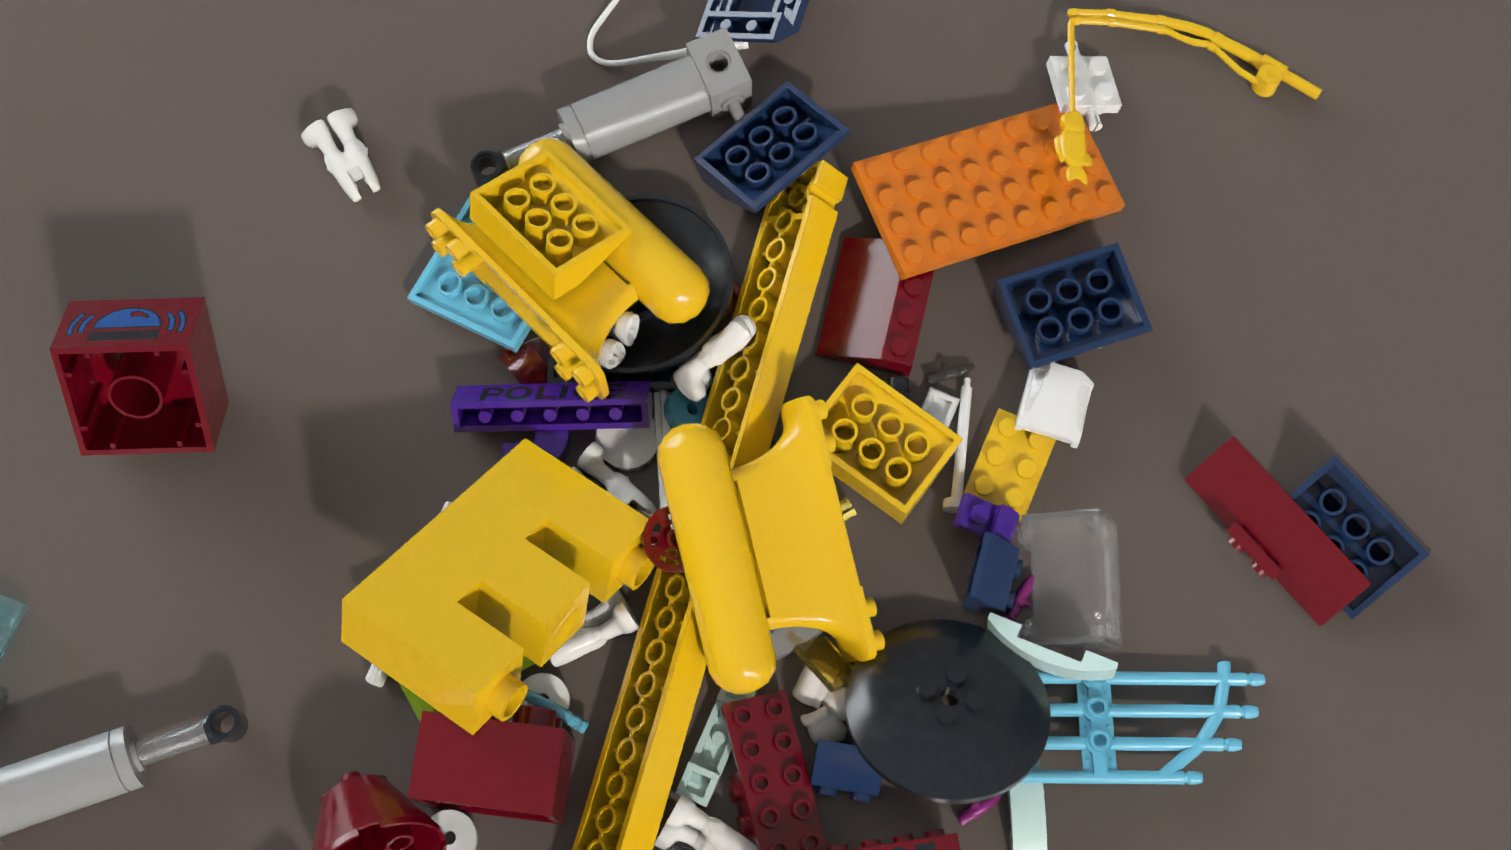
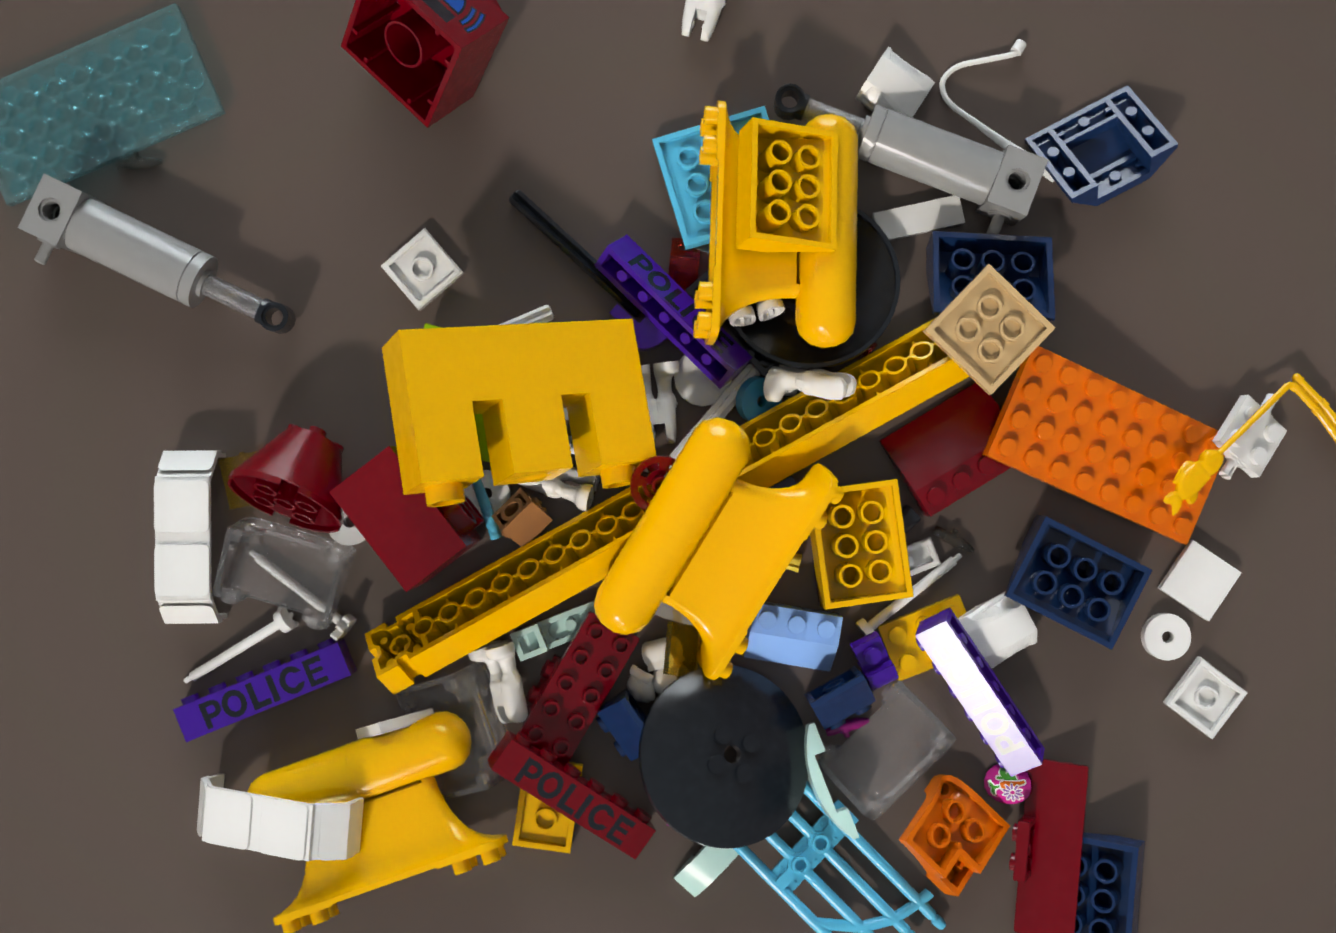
camera: 50 degrees right, 15 degrees up
(314, 573) = (422, 269): none -> white tile
(424, 441) = (569, 247): none -> black axle
(557, 86) = (895, 85): none -> white slope
(591, 687) = (522, 518): none -> medium nougat head
(676, 161) = (920, 217): none -> white tile
(808, 181) = (989, 329): none -> tan plate
(906, 566) = (794, 636): none -> light blue slope
(1091, 462) = (979, 692): none -> brick
(1162, 222) = (1199, 580): none -> white tile
(1174, 296) = (1176, 644): none -> white piece
(1190, 516) = (1007, 788): none -> sticker
(1190, 594) = (953, 833): none -> orange slope
(1262, 303) = (1205, 697): none -> white tile

